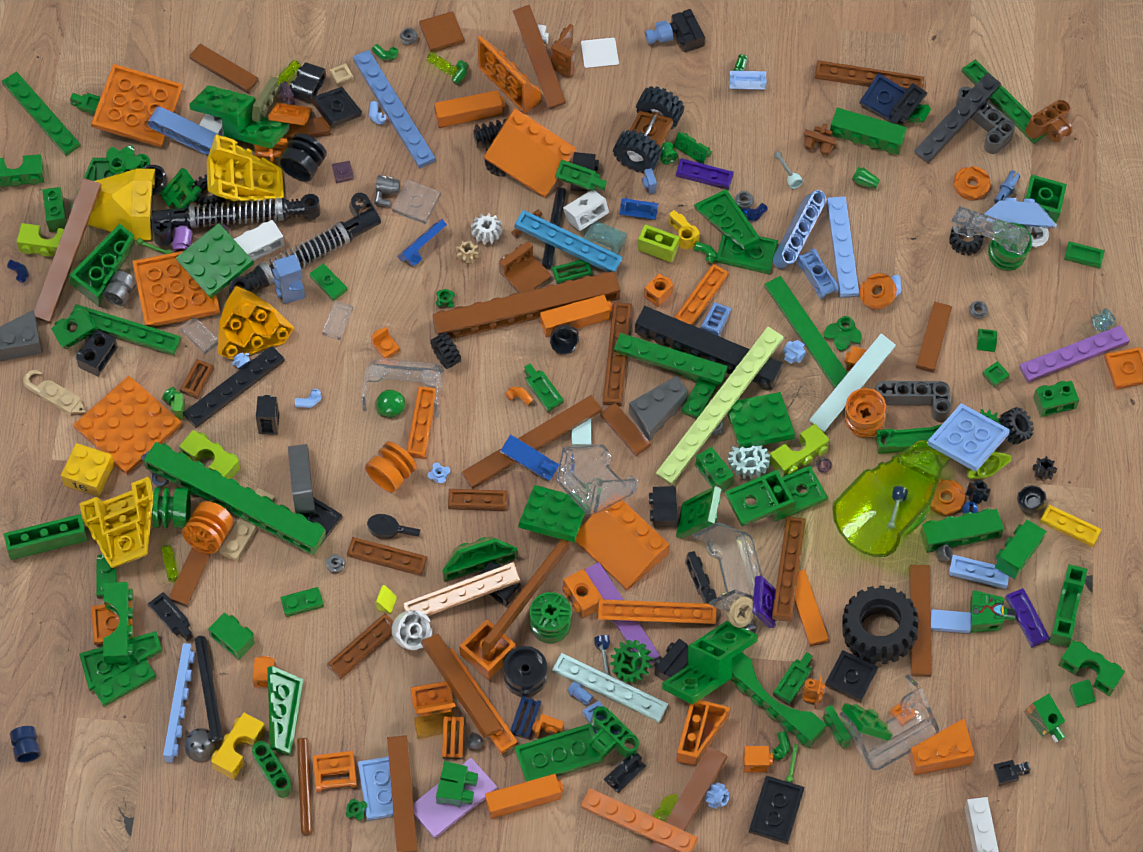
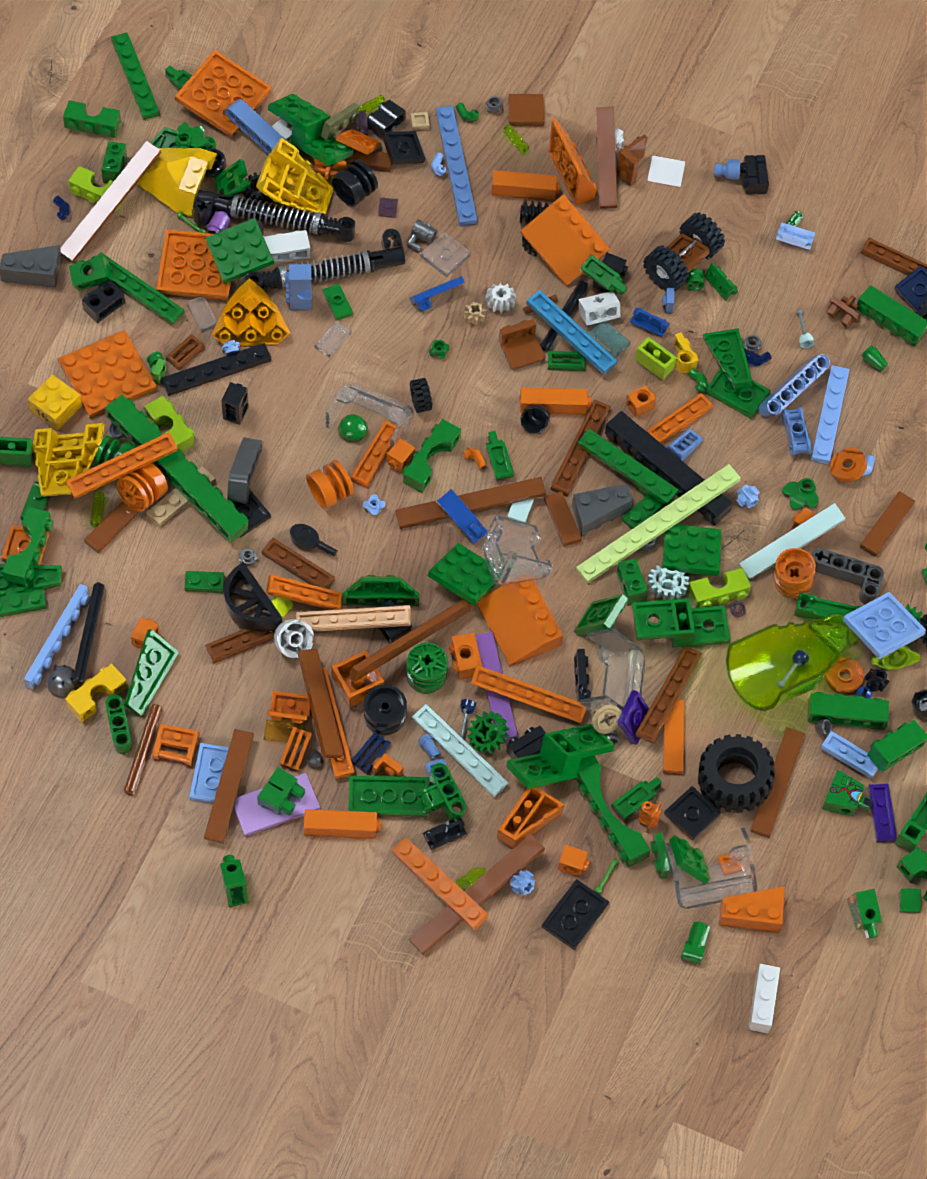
camera: 15 degrees right, 0 degrees up
(55, 394) = (52, 327): tan plate -> none
(100, 265) = (138, 224): green wedge -> none
(119, 288) = (145, 249): flat silver wheel -> none
(171, 616) = (80, 556): black hinge -> none
(183, 513) = (121, 465): none -> orange plate
(223, 68) = (314, 84): dark orange tile -> none
(232, 635) = (127, 591): green brick -> none
(310, 401) = (280, 404): light blue arm -> none
(352, 805) = (177, 784): green plate -> none
(356, 595) = (254, 591): none -> black window
(384, 343) = (367, 372): orange bracket -> none
(404, 582) = (304, 593): none -> orange tile
(447, 416) = (400, 455): none -> orange brick
(461, 73) = (530, 151): green arm -> none
(477, 499) = (401, 540): dark orange tile -> none
(482, 386) = (443, 438): none -> green arch
(523, 306) = (507, 377): dark orange brick -> none
(664, 506) = (572, 600): black brick -> none
(704, 174) = (723, 309): dark purple tile -> none
(783, 747) = (602, 859): green arm -> none
(806, 330) = (766, 480): green tile -> none
(899, 805) = (694, 947): none -> green piece
(950, 621) = (806, 792): light blue tile -> none
(1008, 772) = (810, 951): black plate -> none

